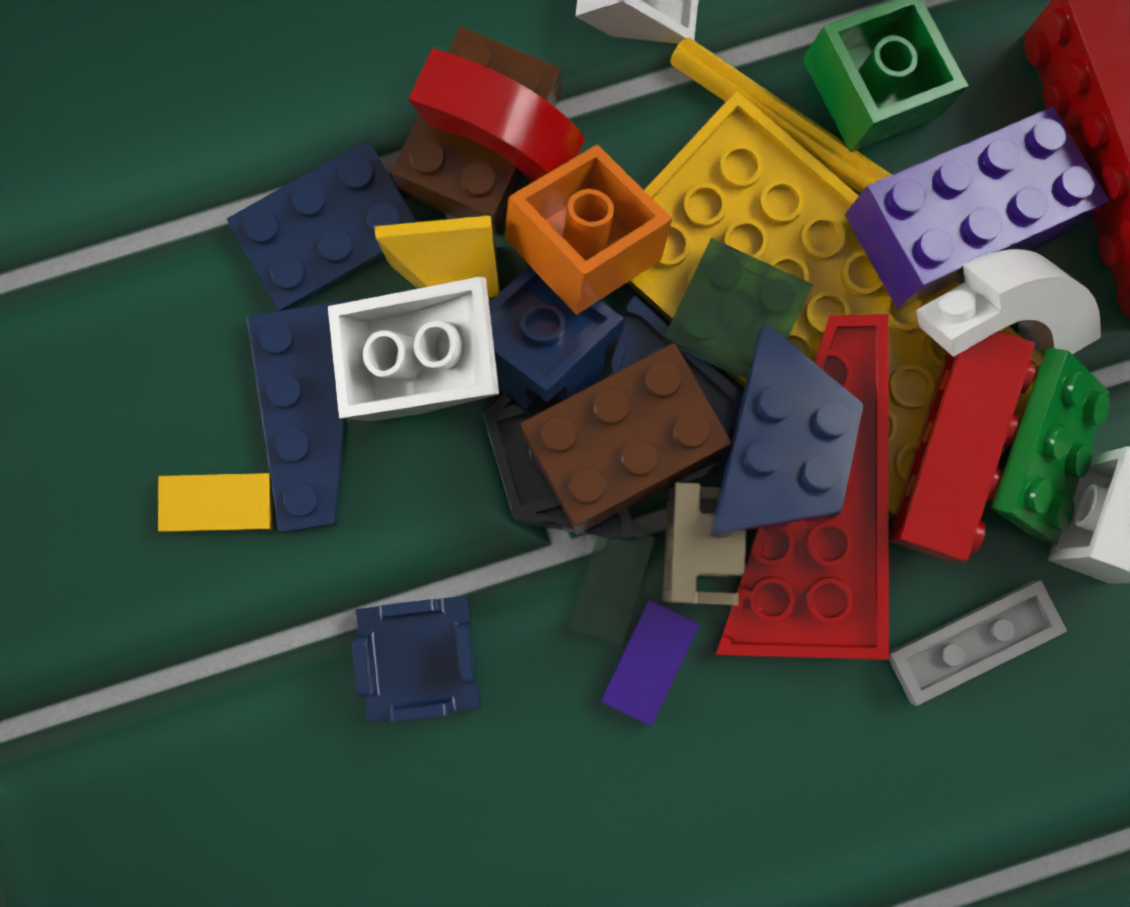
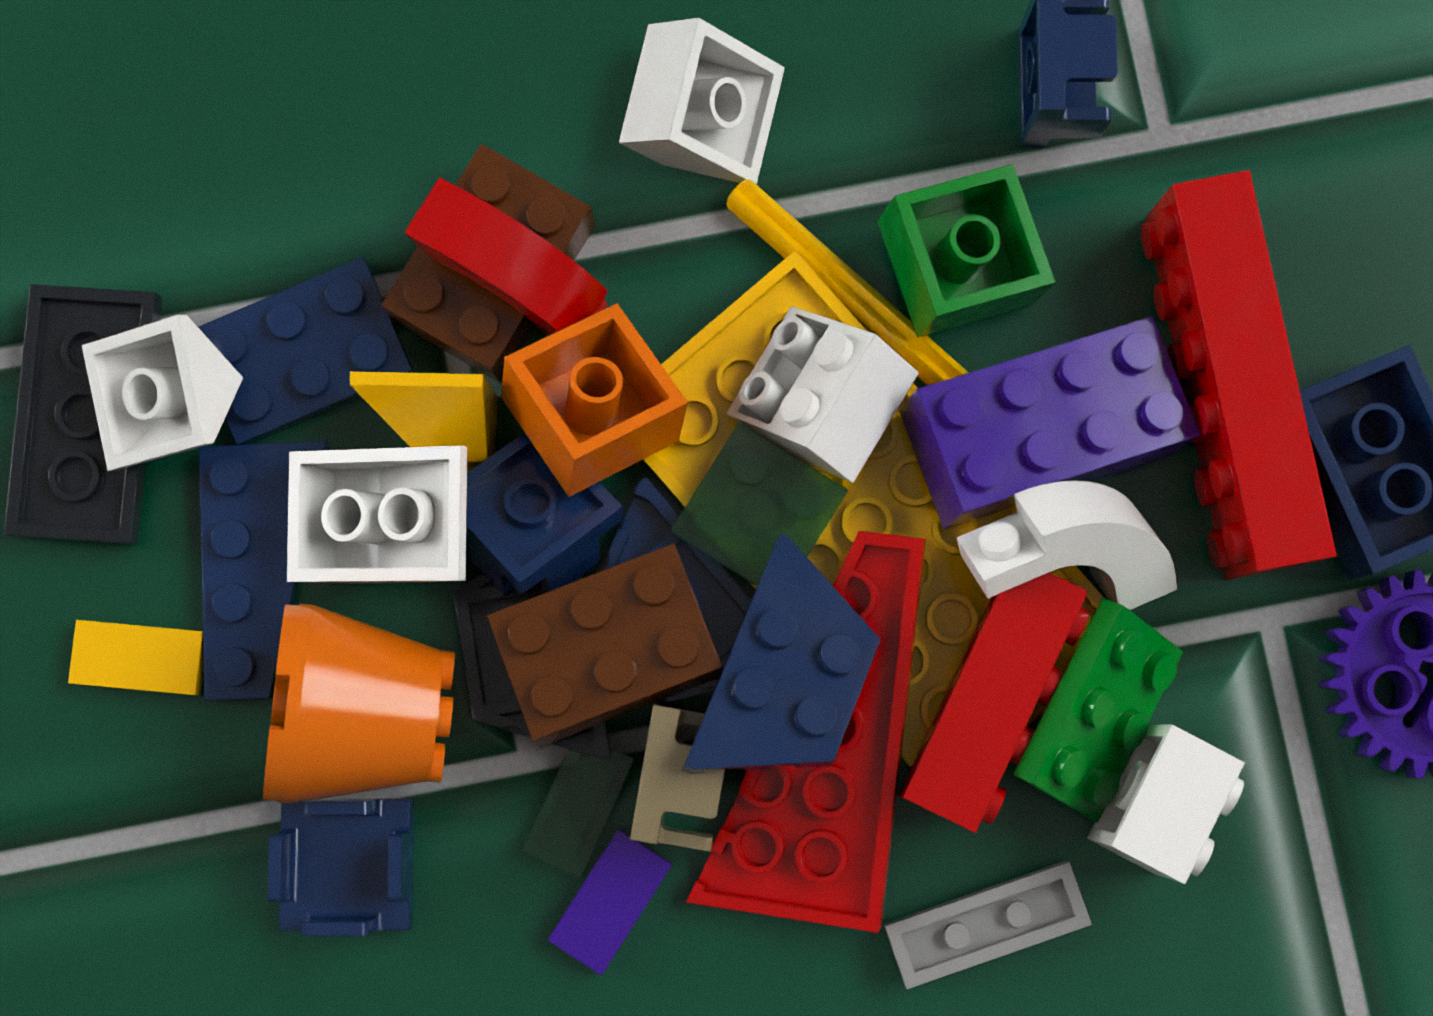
camera: 10 degrees right, 0 degrees up
(143, 301) = (58, 459): none -> black plate
(206, 267) = (158, 390): none -> white slope
(411, 520) = (353, 708): none -> orange cone
(782, 201) = (823, 392): none -> white slope

